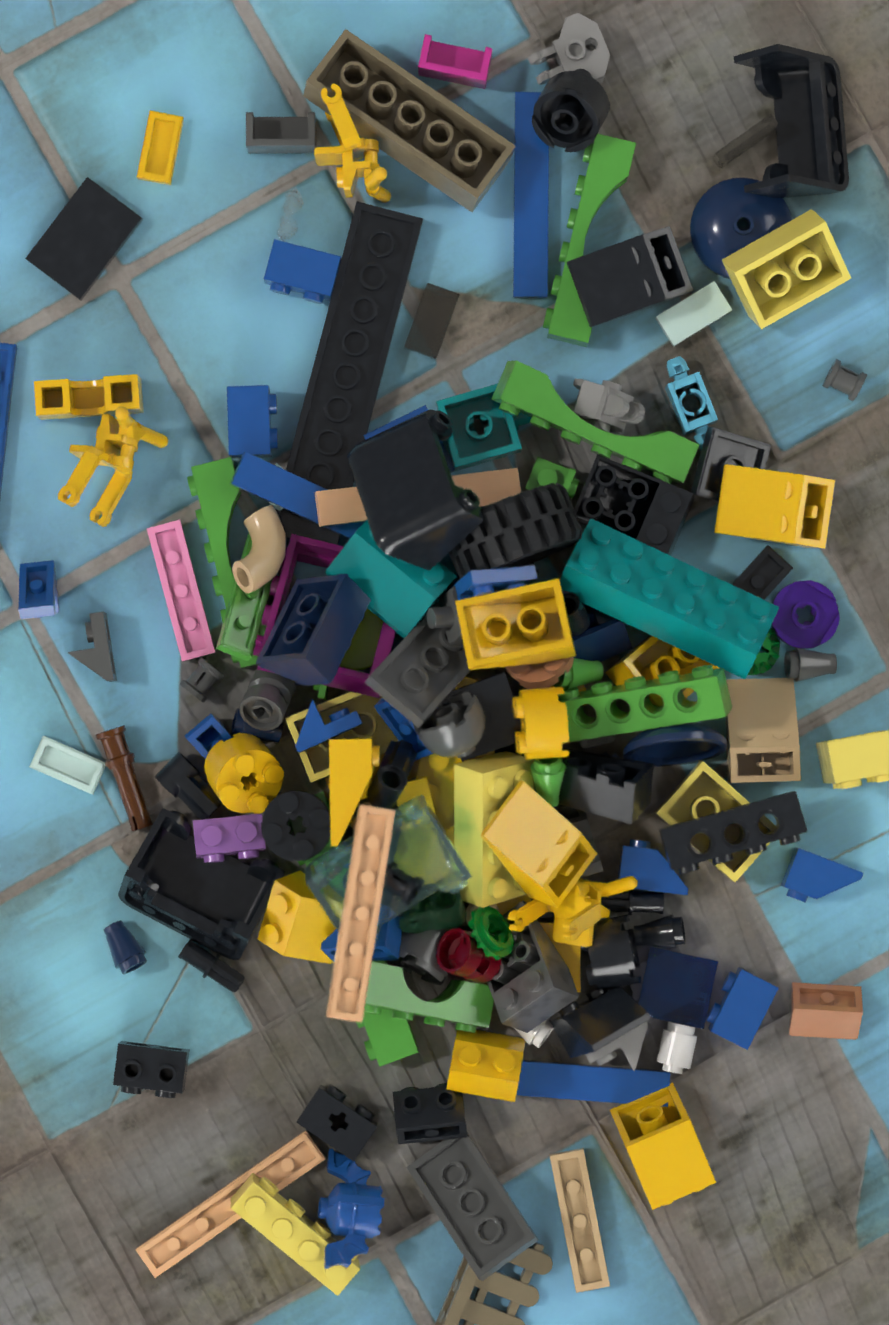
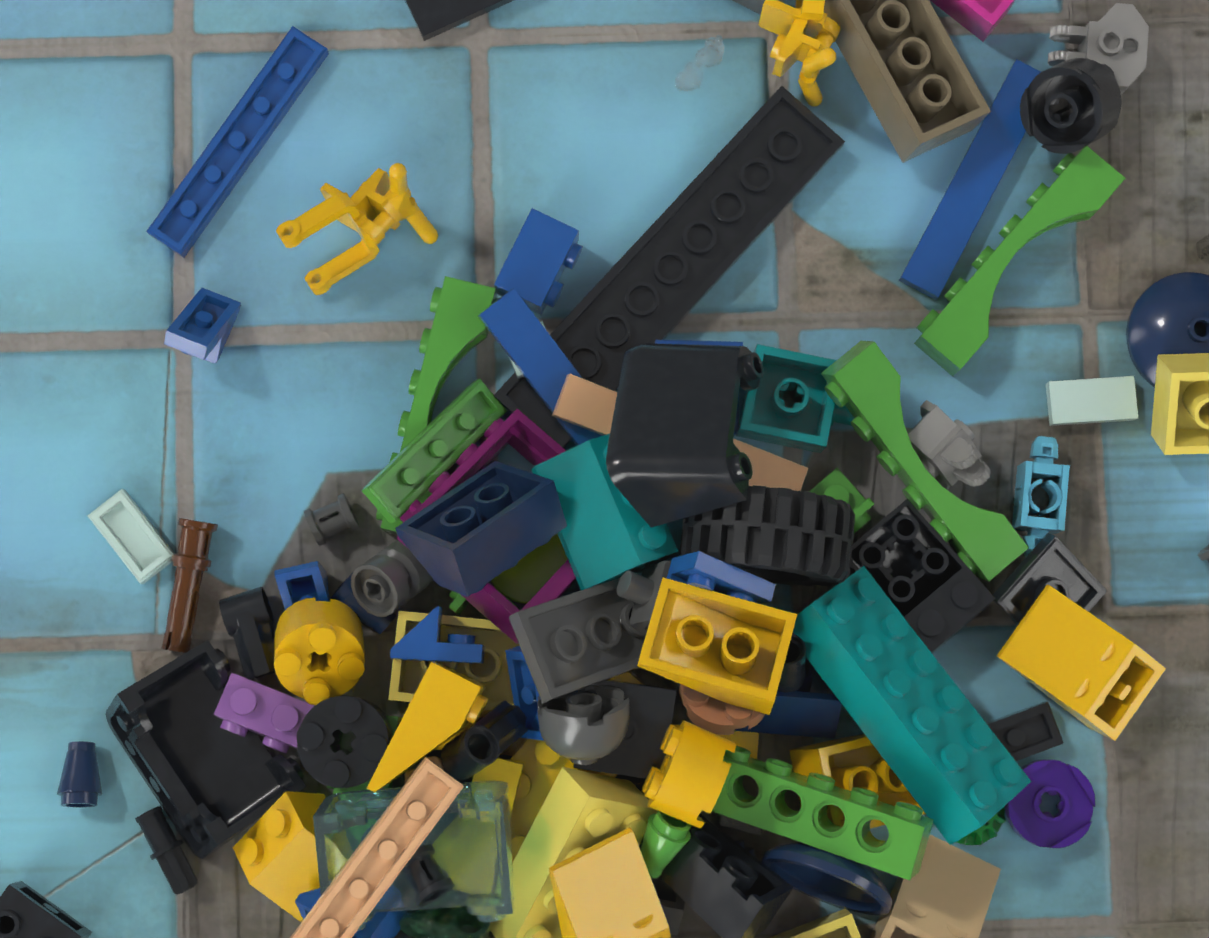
camera: 20 degrees right, 5 degrees down
(87, 398) = (353, 136): yellow arch -> none
(101, 657) = (233, 435): dark grey slope -> none
(181, 590) = (362, 408): bright pink plate -> none
(266, 552) = (476, 414): tan cylinder -> none
(301, 271) = (681, 129): blue brick -> none
(431, 321) = (795, 259): clear smoke tile -> none
(581, 673) = (763, 737): bright green cone -> none
(630, 276) = (1046, 320): black slope -> none
(807, 664) = (1024, 862): dark grey cone -> none

